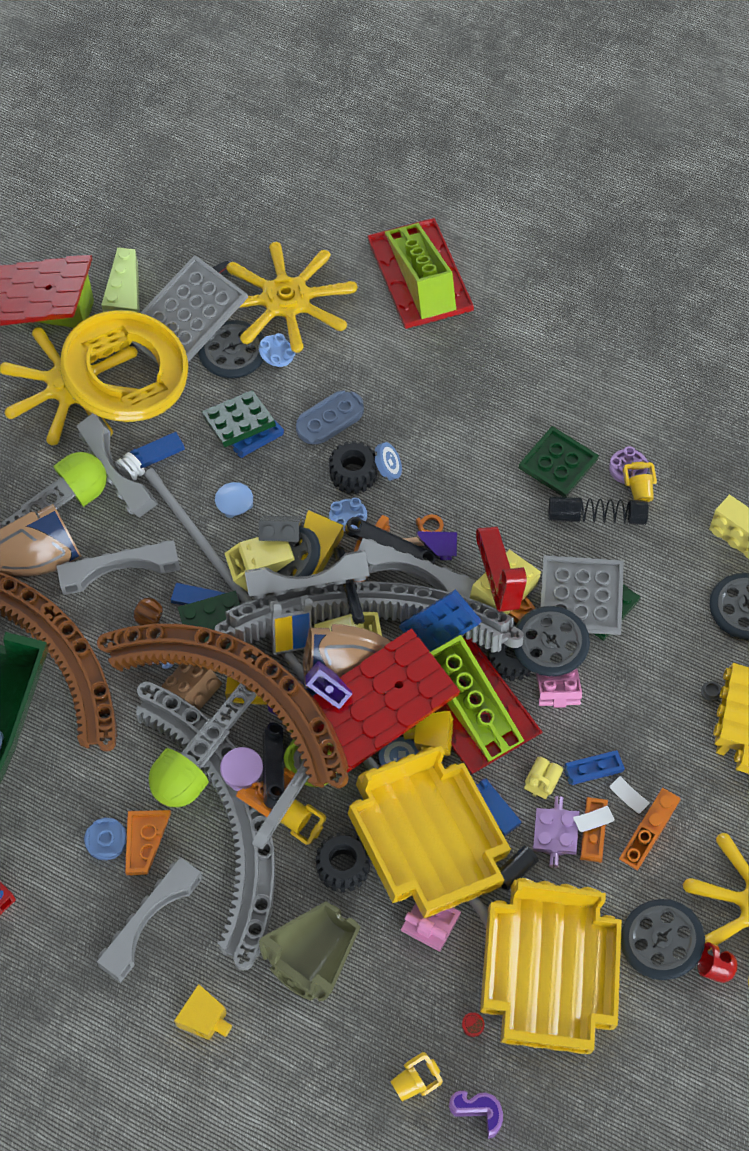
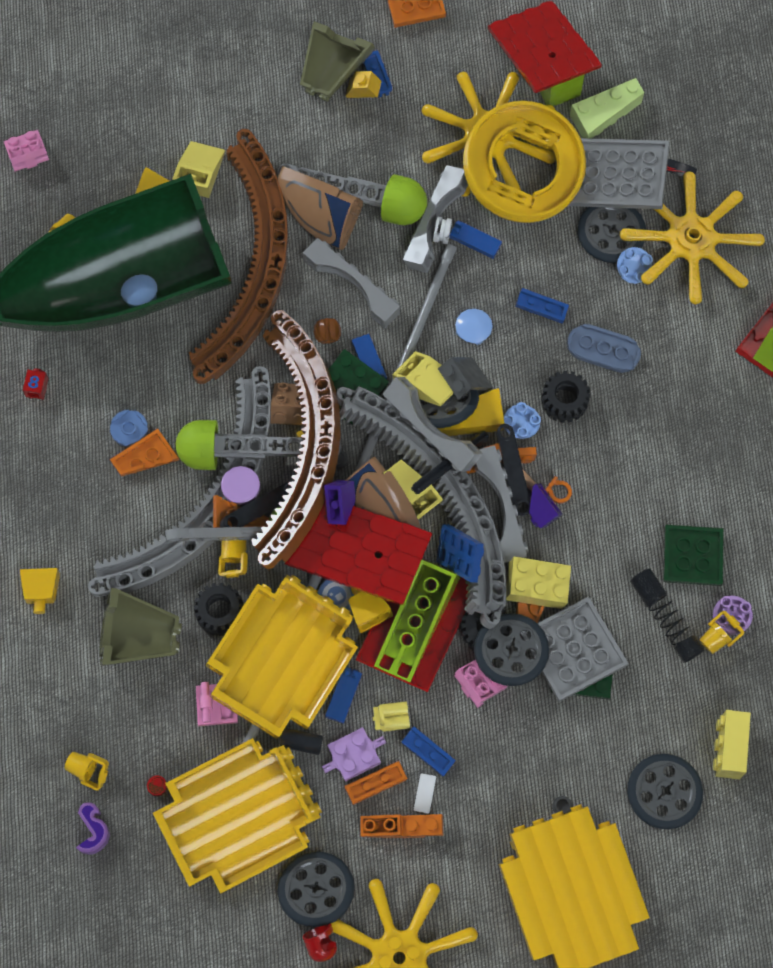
camera: 55 degrees right, 10 degrees up
(120, 955) = (46, 500): light grey arch -> none
(238, 418) = (546, 279): plate -> none
(291, 628) = (381, 444): flag -> none
(388, 461) = (590, 420): medium blue tile -> none
(505, 583) = (538, 566): red beam -> none
(594, 819) = (381, 776): white sticker -> none

